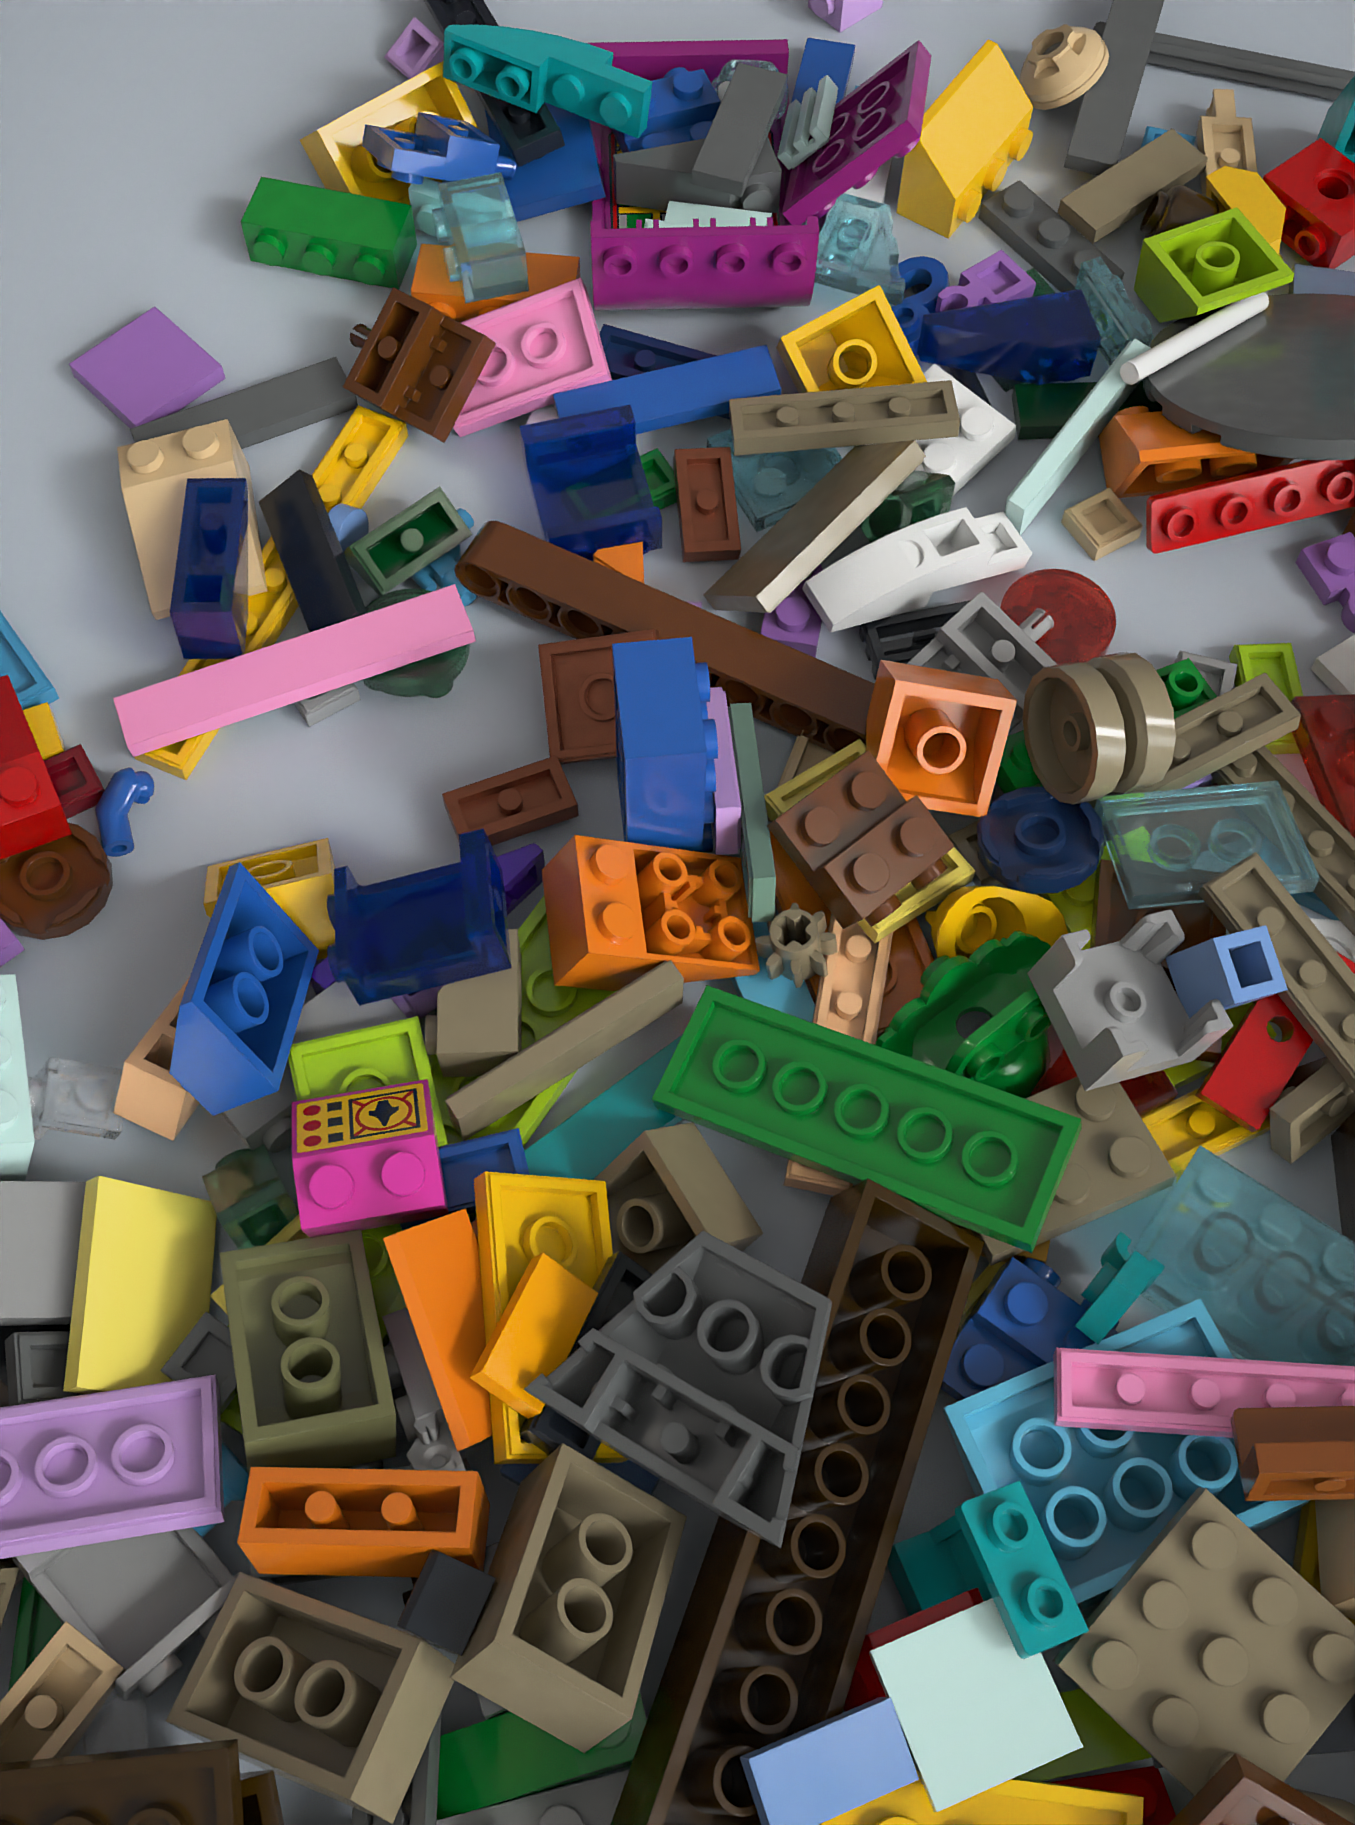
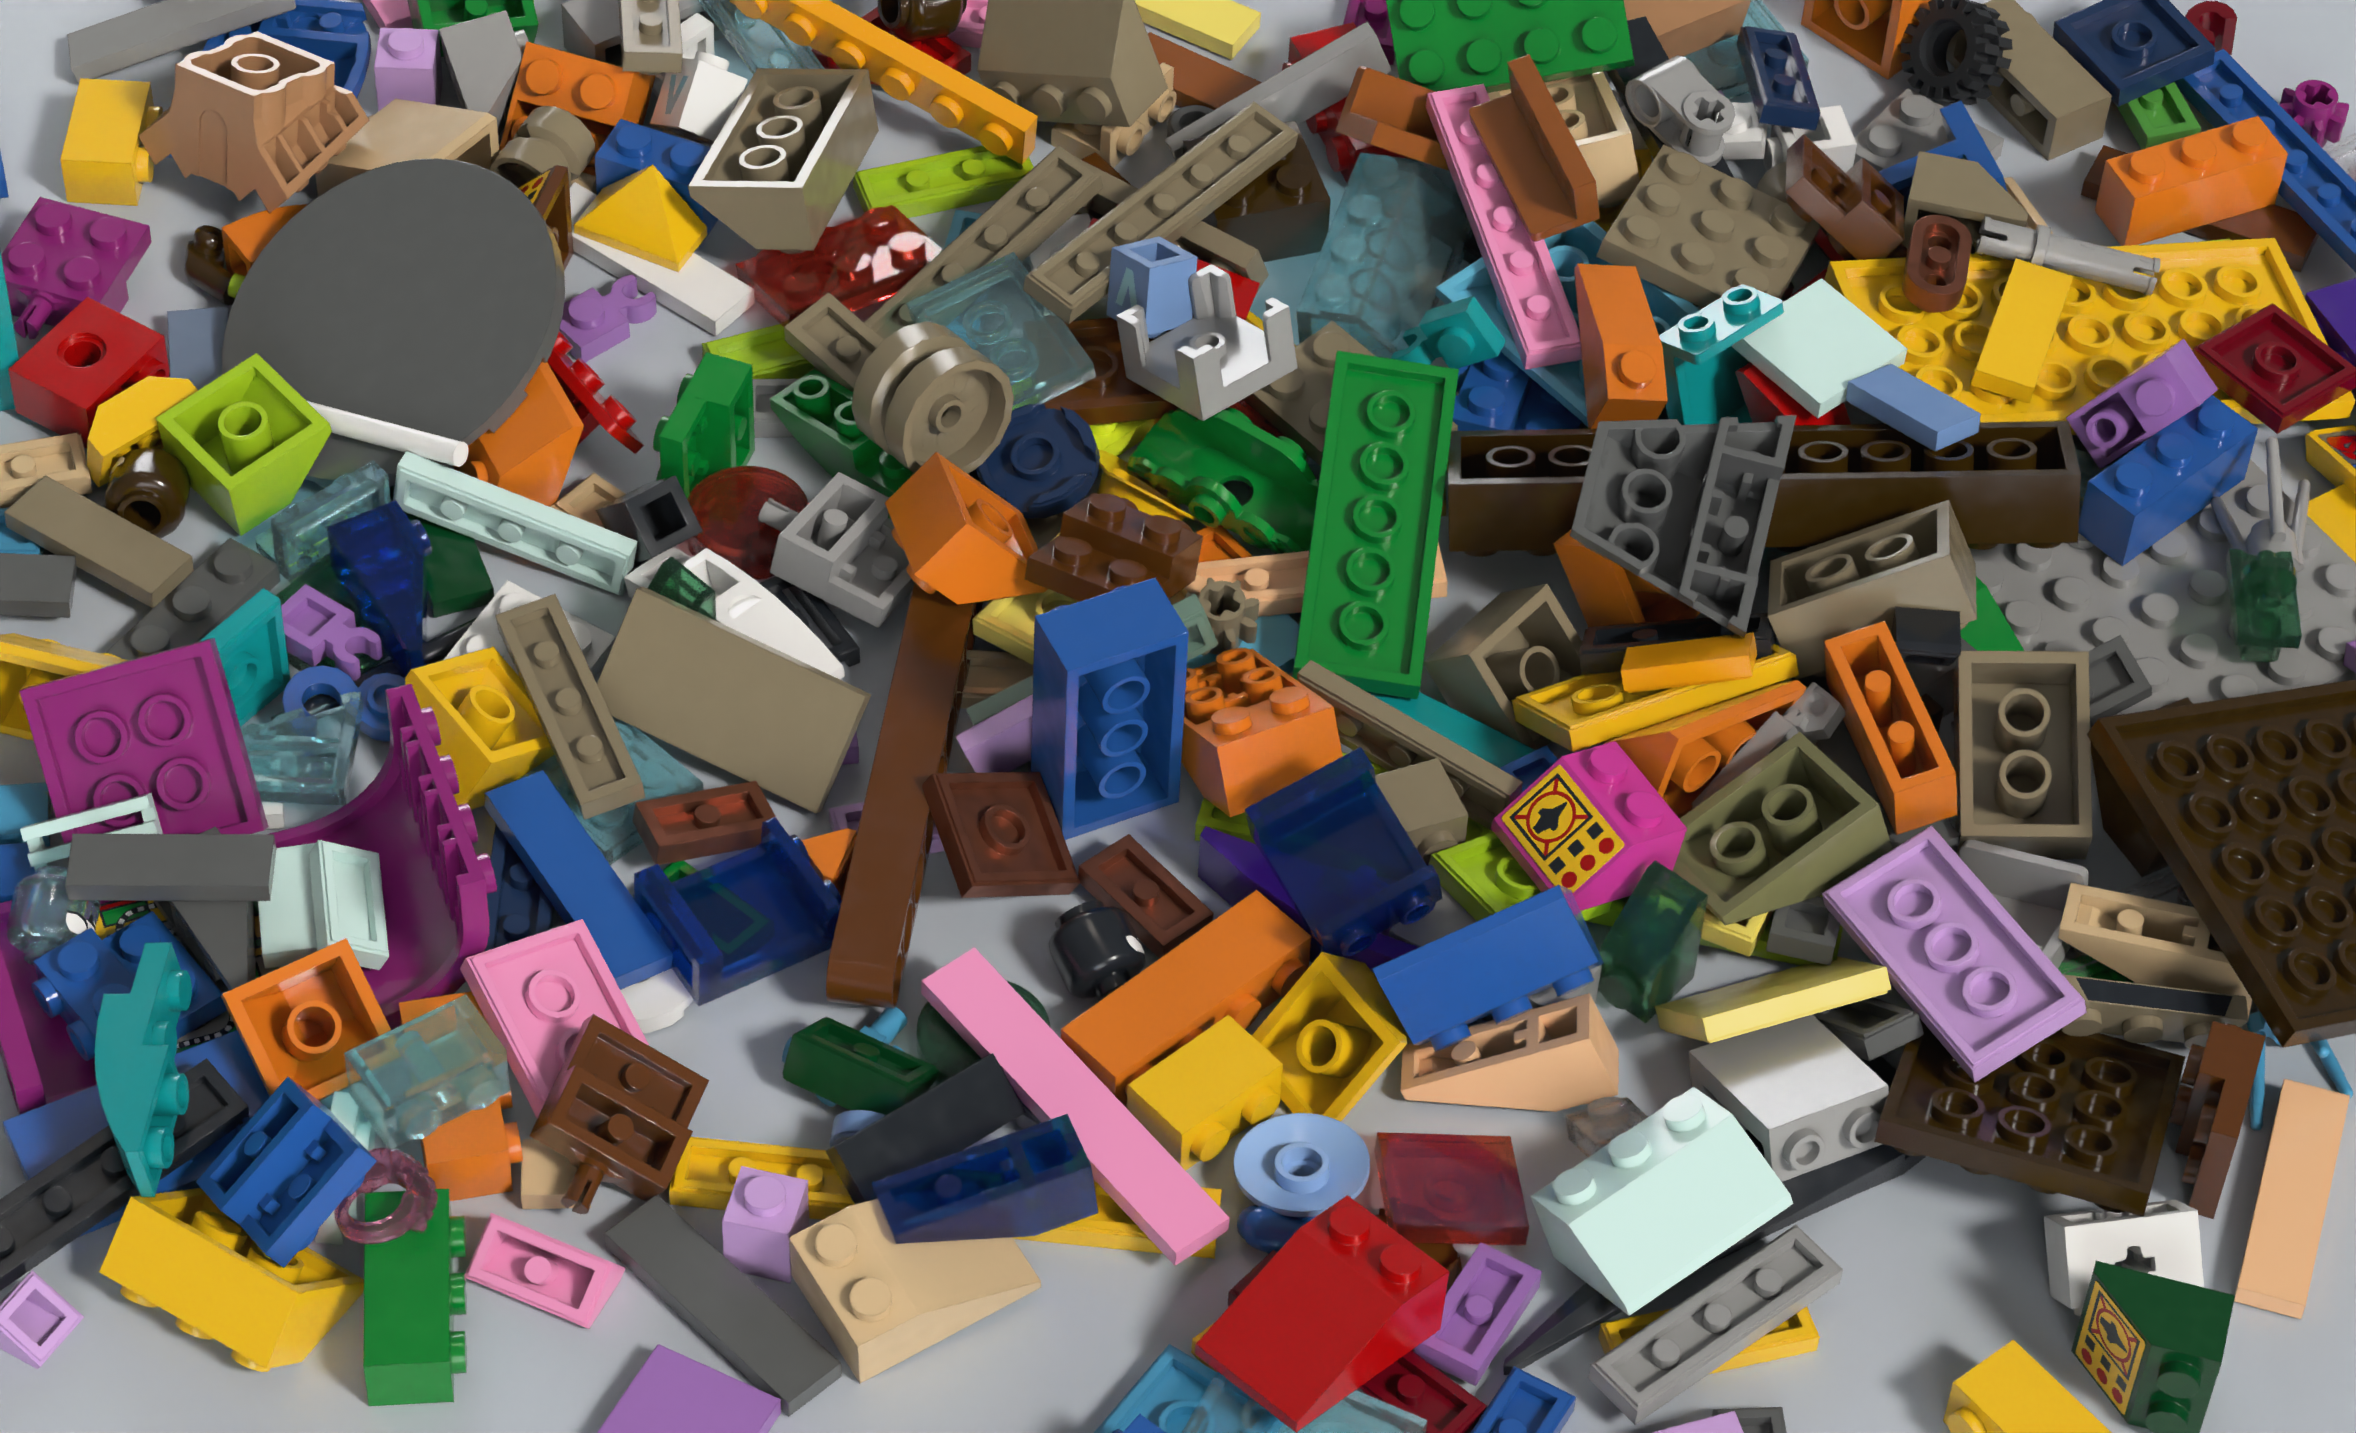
camera: 110 degrees left, 15 degrees down
(87, 938) = (1451, 1188): none -> clear red tile
(158, 806) = (1301, 1164): none -> light blue dish
(274, 780) = (1207, 1092): none -> yellow brick
(283, 440) = (761, 1218): none -> lavender brick
(326, 325) = (543, 1271): none -> bright pink slope
(369, 781) = (1221, 970): none -> orange brick
(372, 217) = (416, 1203): none -> clear pink piece
(458, 743) = (1095, 950): none -> black head
(565, 190) = (306, 1019): none -> orange slope
(949, 215) = (253, 653): none -> teal tile
(1037, 1444) = (1618, 346): none -> orange slope
(1055, 531) = (653, 516): none -> black brick
(1150, 587) = (709, 424): none -> green plate

